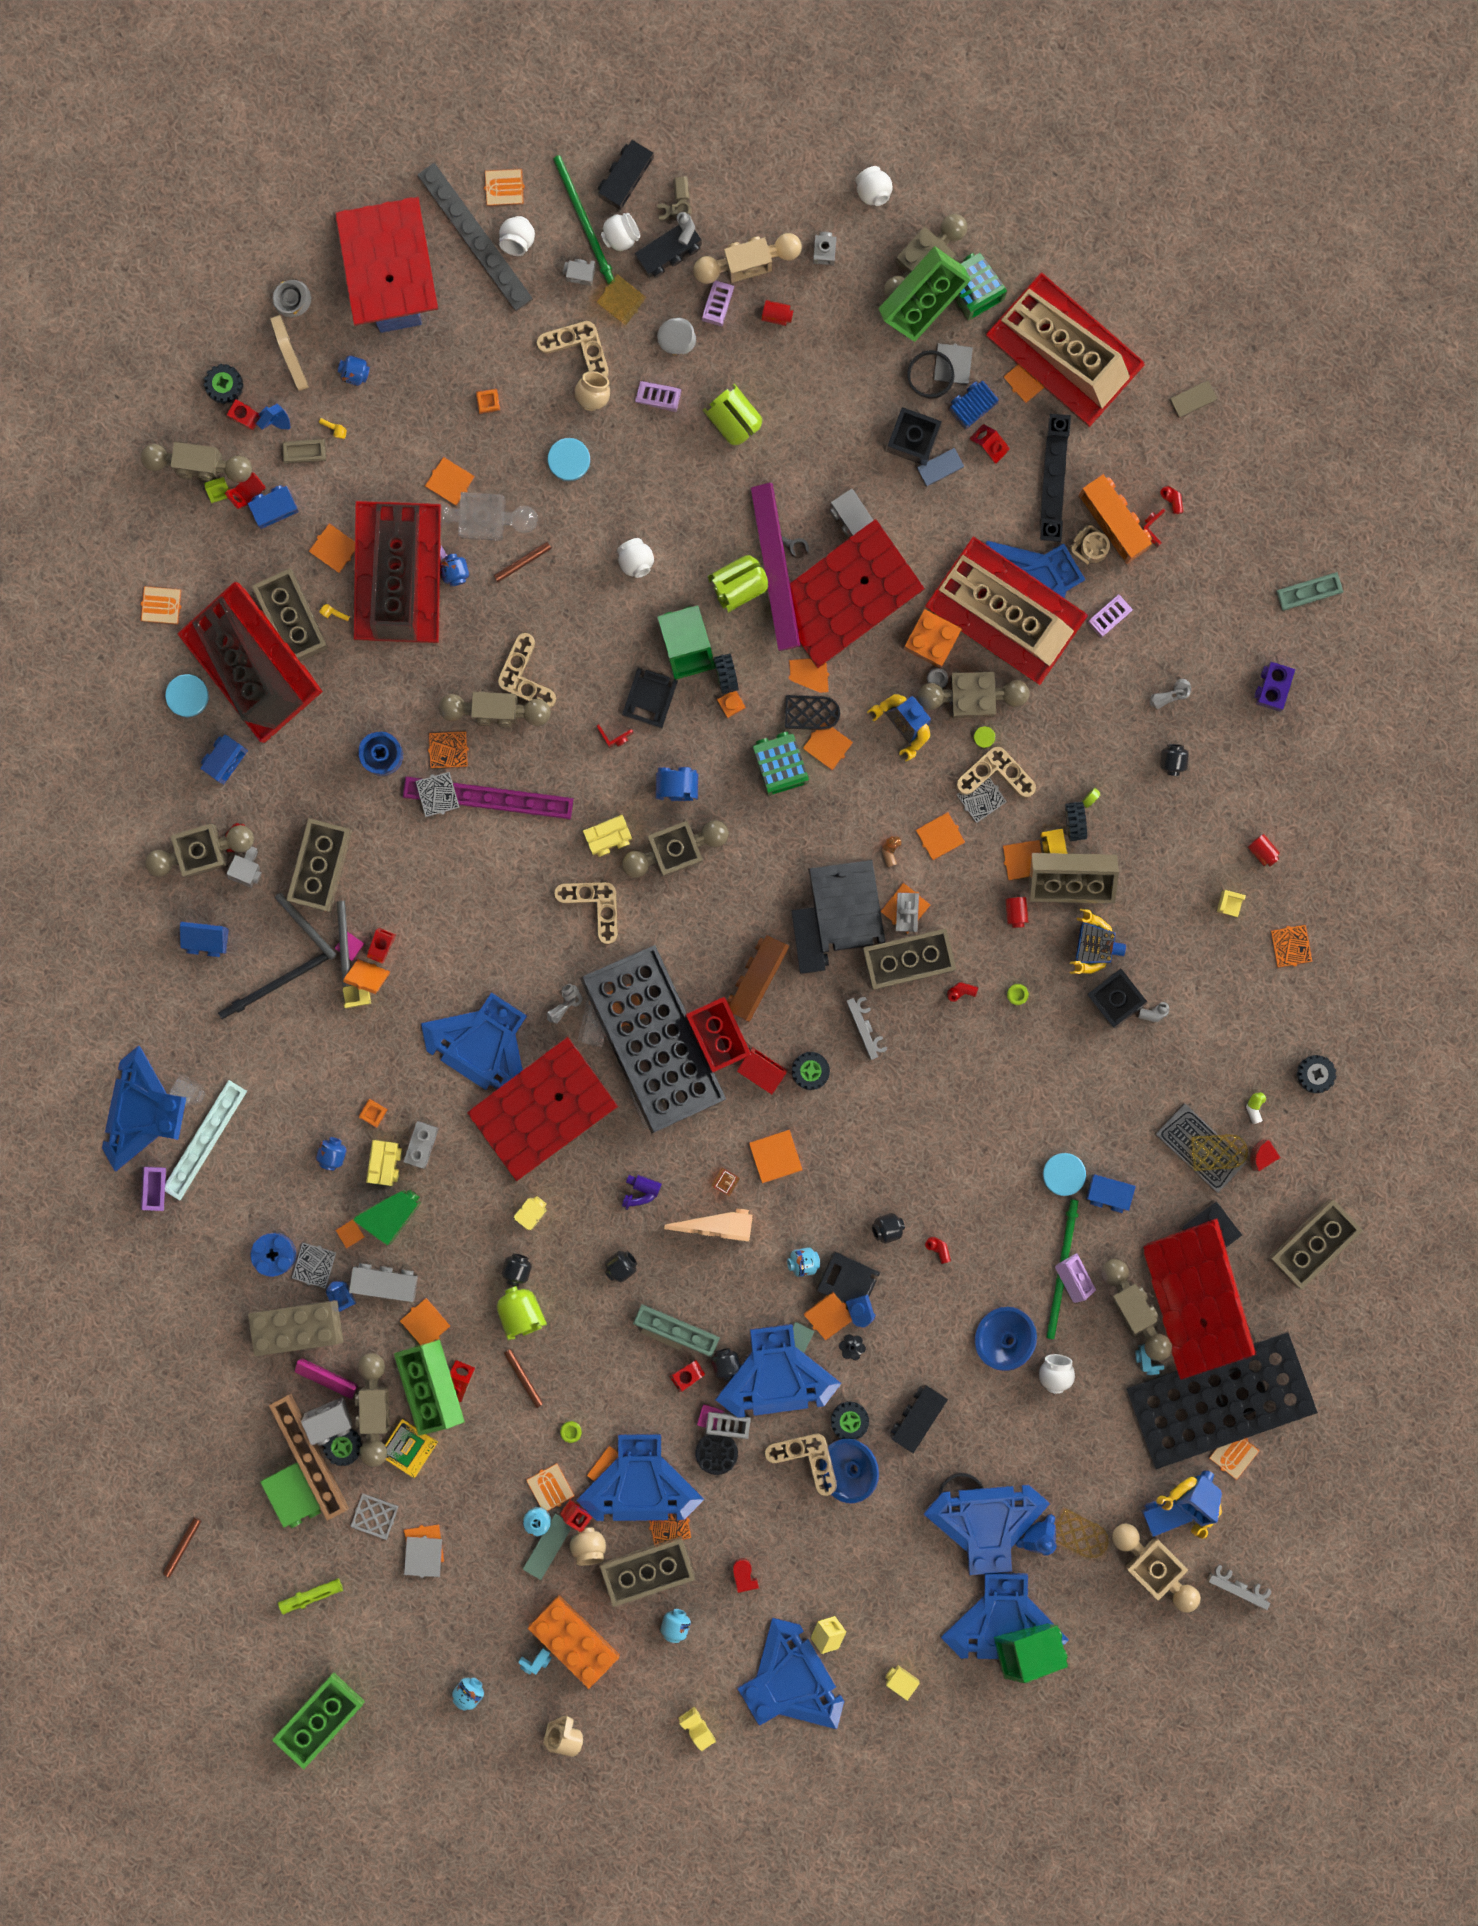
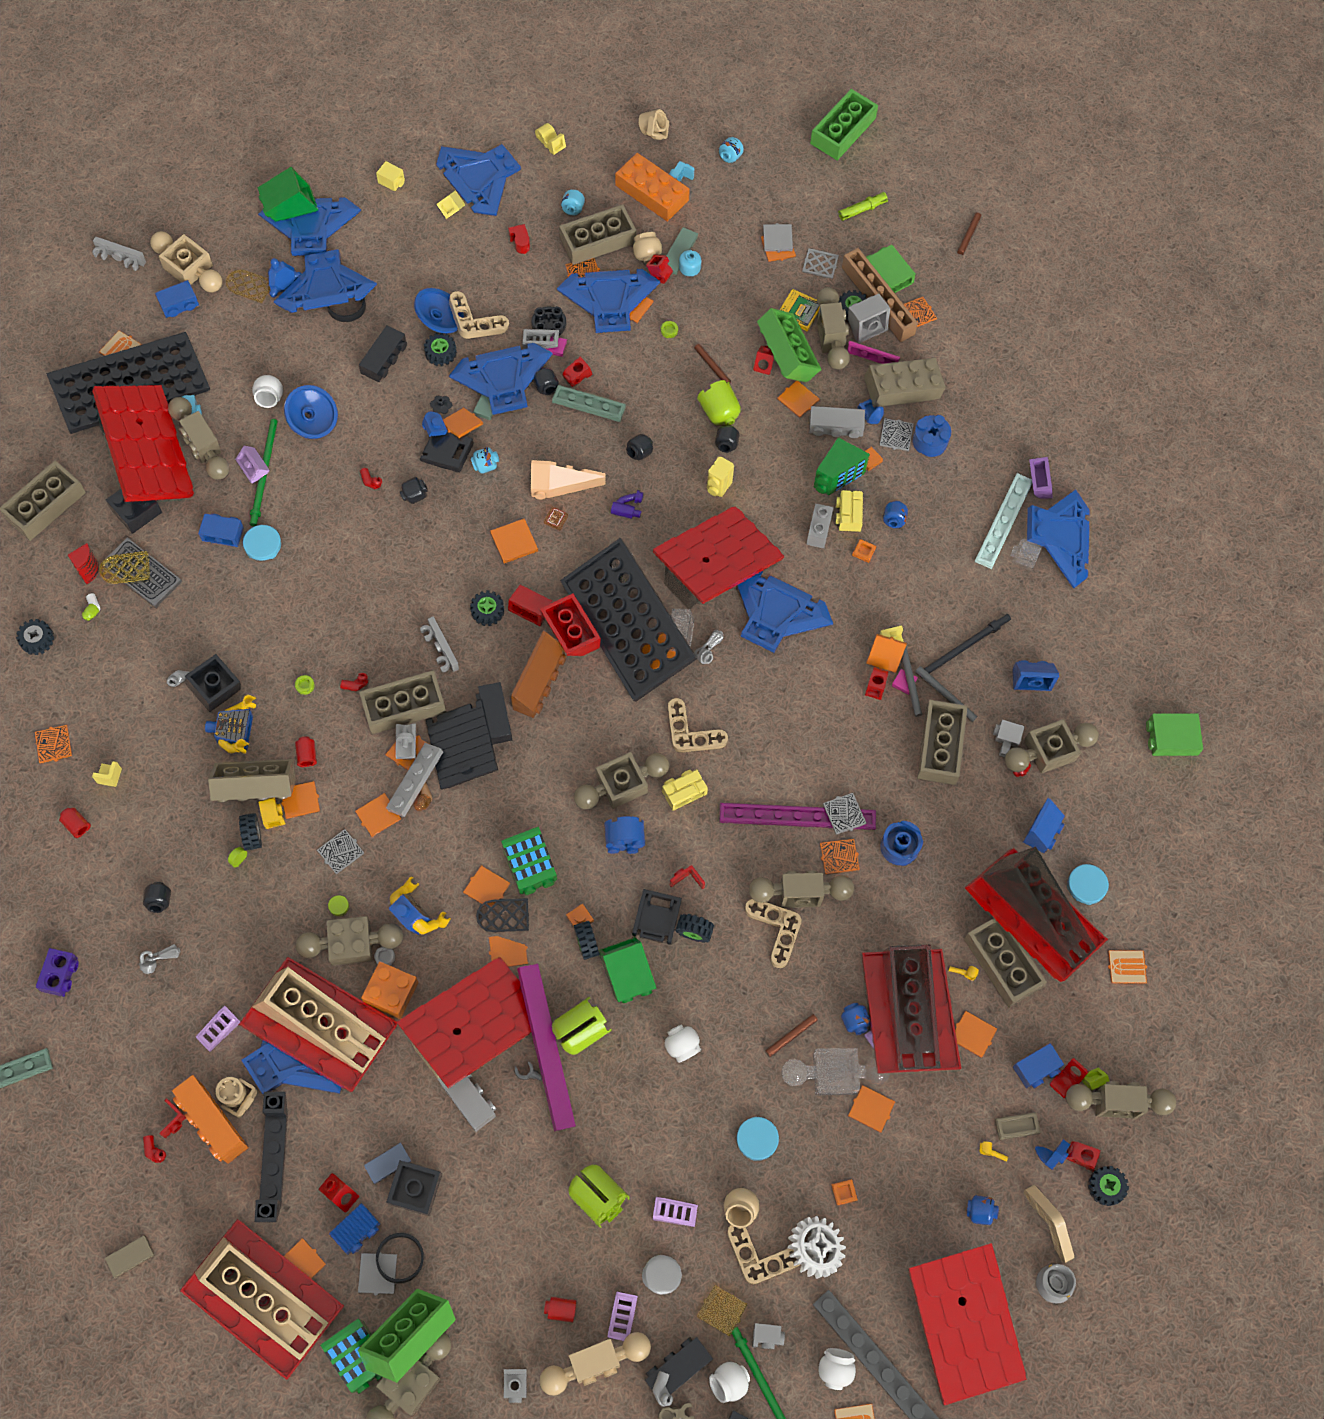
camera: 175 degrees right, 20 degrees down
(60, 856) = (1174, 734): none -> bright green brick
(264, 1435) = (920, 311): none -> orange piece
(522, 340) = (811, 1253): none -> white gear
(550, 1487) = (682, 291): piece -> none
(611, 677) = (694, 928): none -> black wheel
(899, 869) = (414, 779): none -> light grey plate
(993, 766) = (329, 878): tan beam -> none
(1198, 1499) = (151, 308): torso -> none

